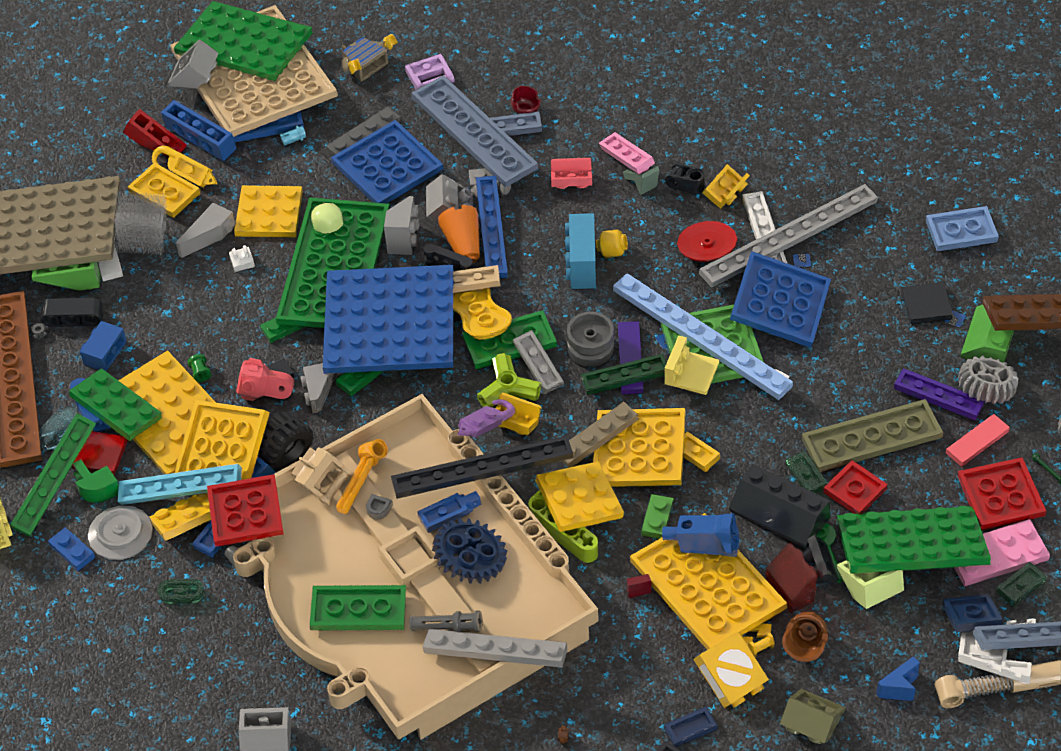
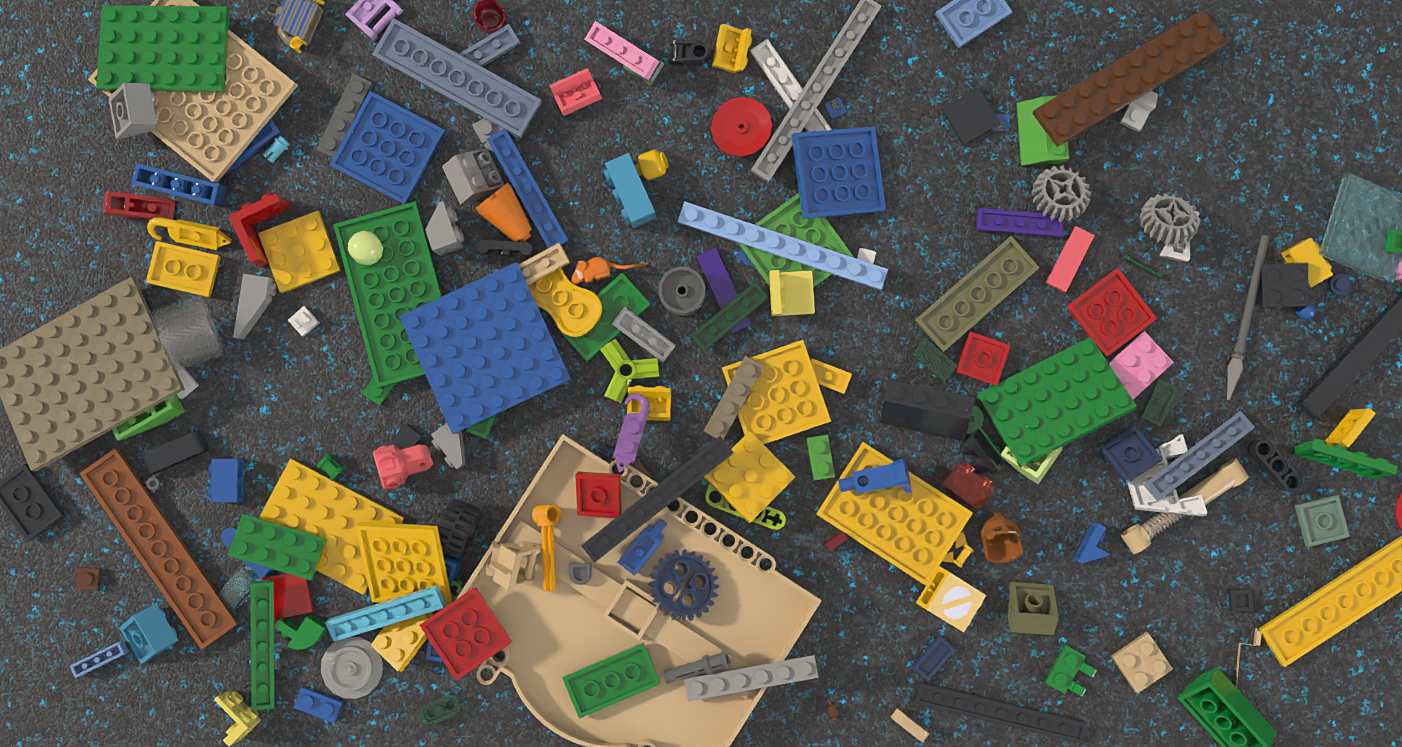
camera: 25 degrees left, 35 degrees up
(242, 169) = (252, 214): none -> red bracket
(428, 448) = (598, 494): none -> red plate
(522, 302) = (596, 268): none -> orange animal

